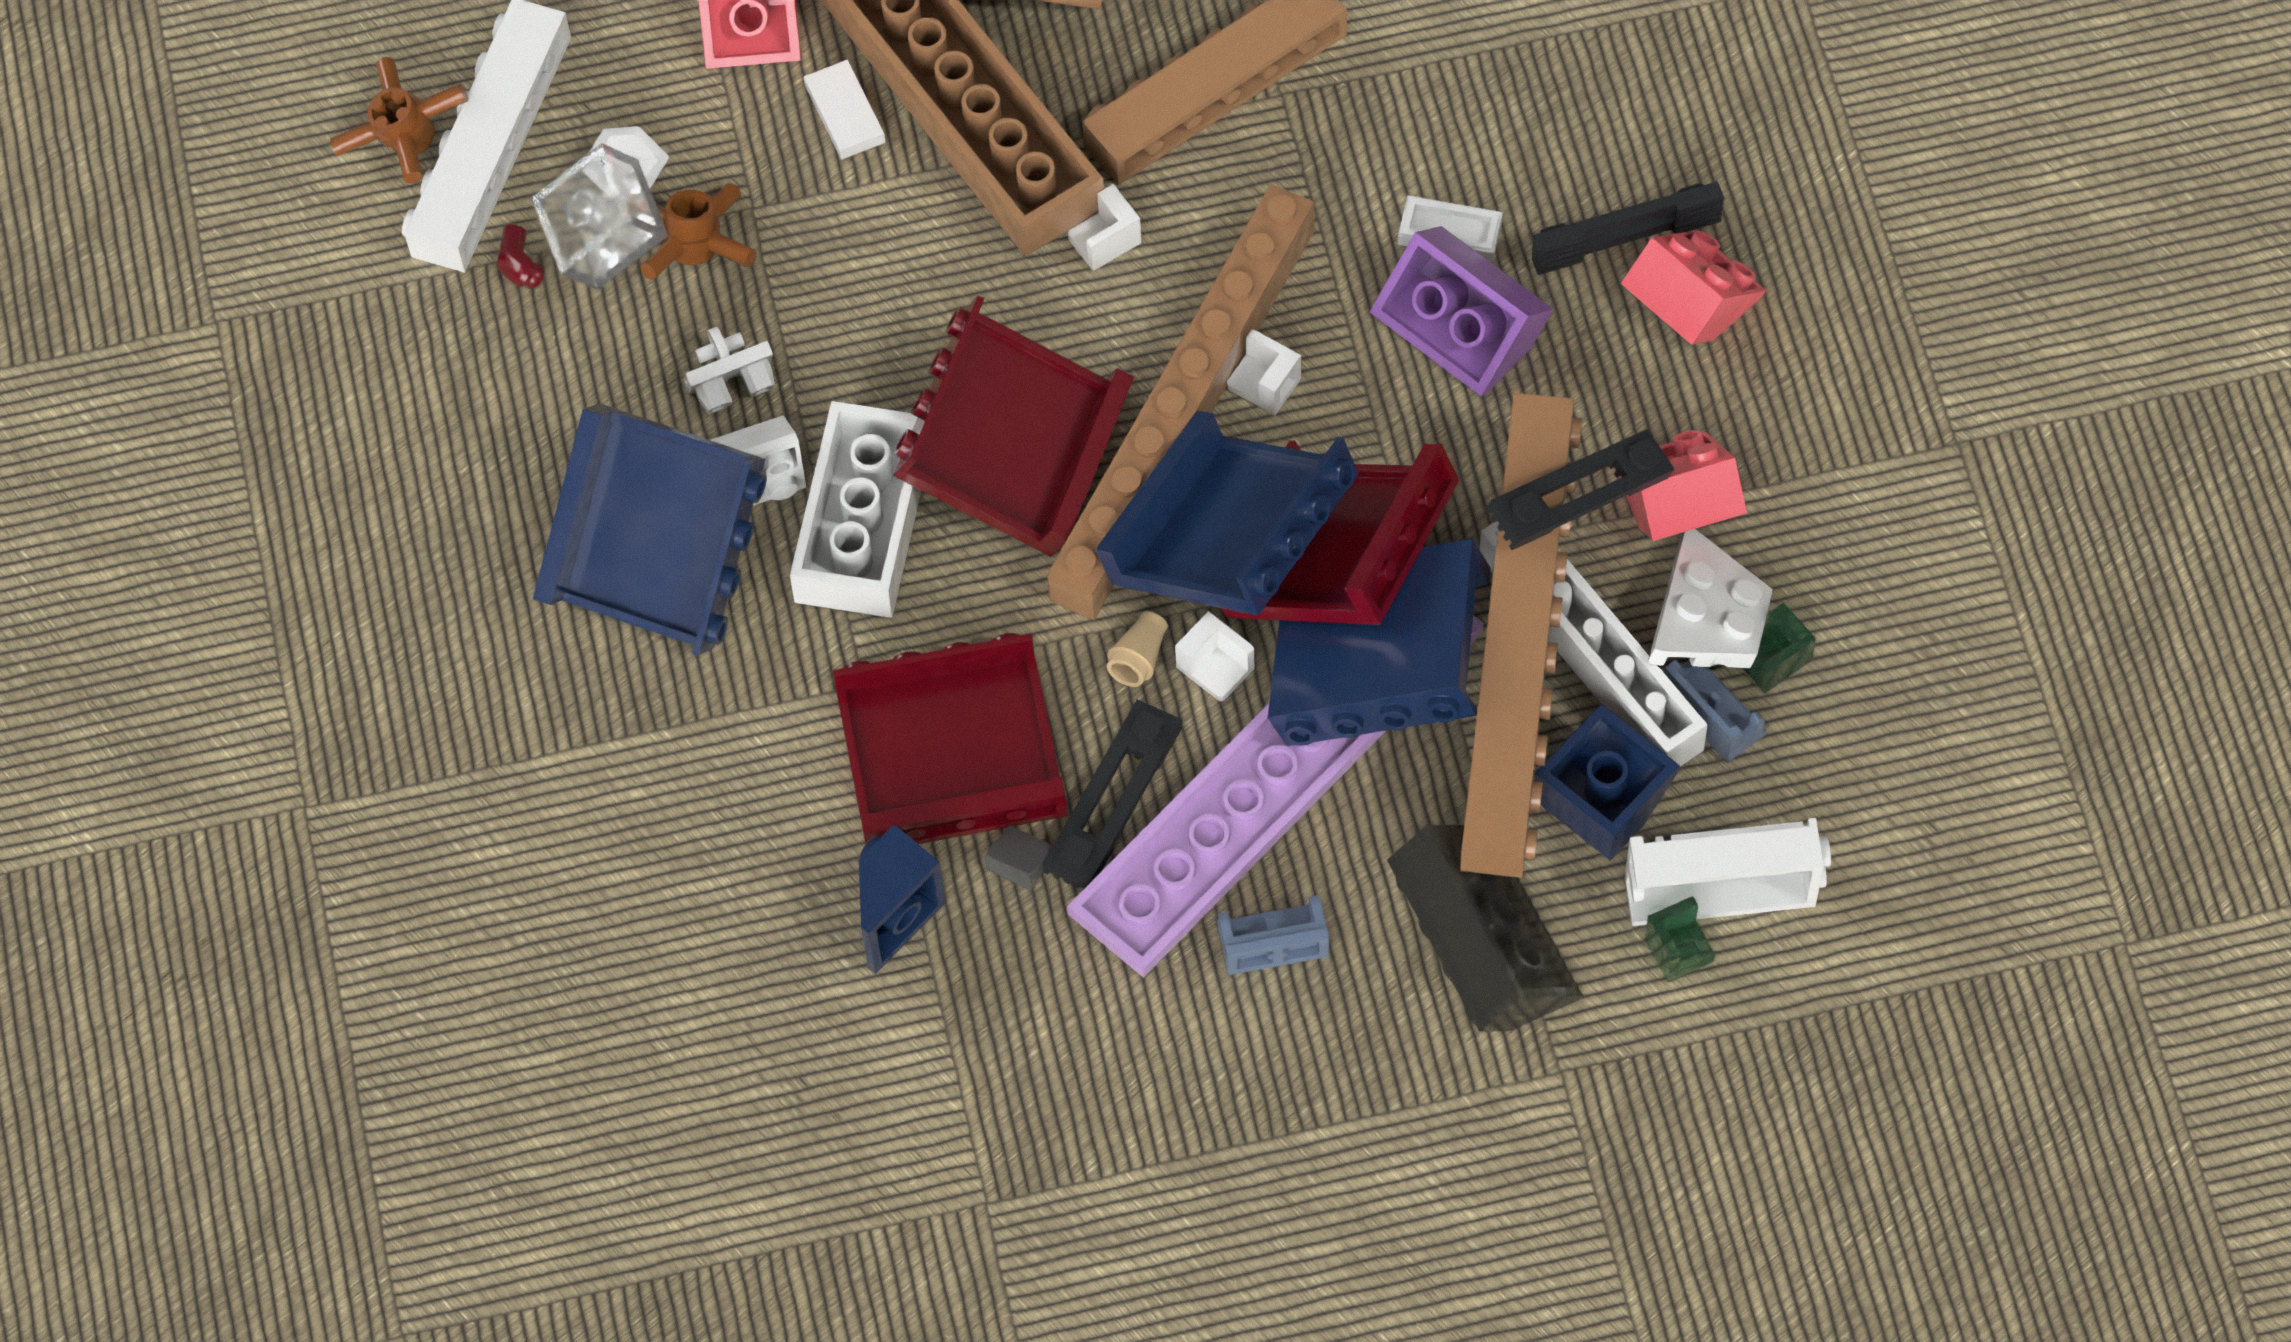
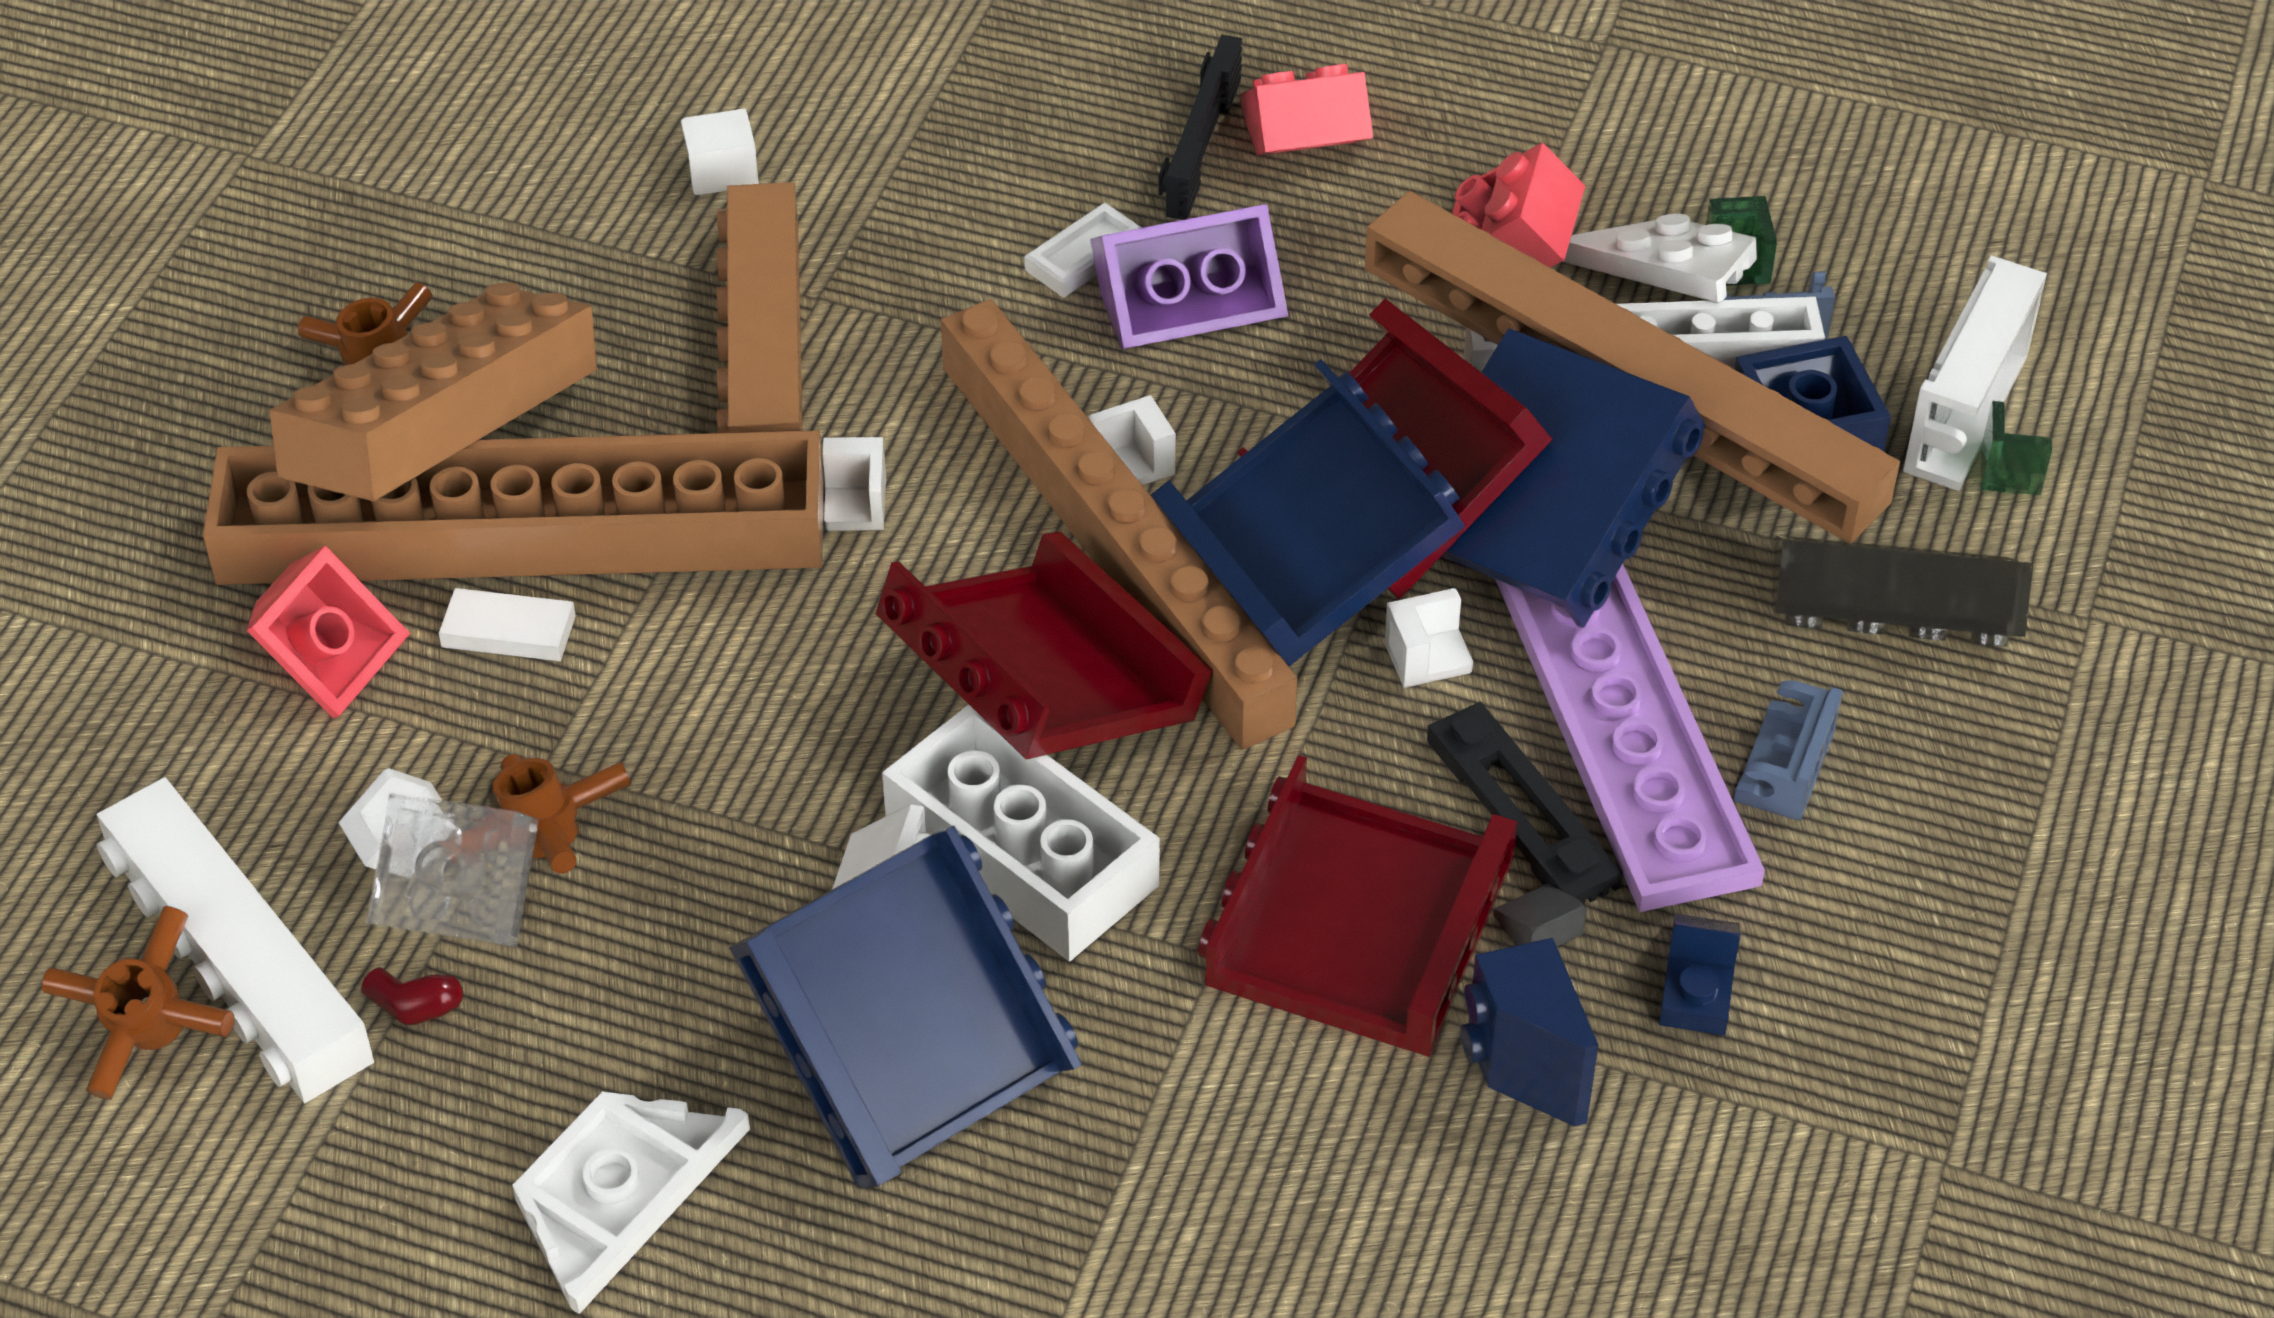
camera: 60 degrees left, 15 degrees down
(454, 458) = (617, 1182): none -> white wing
(708, 380) = (749, 847): white hips -> none
(1048, 973) = (1699, 974): none -> dark blue slope
(1136, 653) = (1374, 699): tan cone -> none
(1527, 516) = (1514, 264): black container -> none

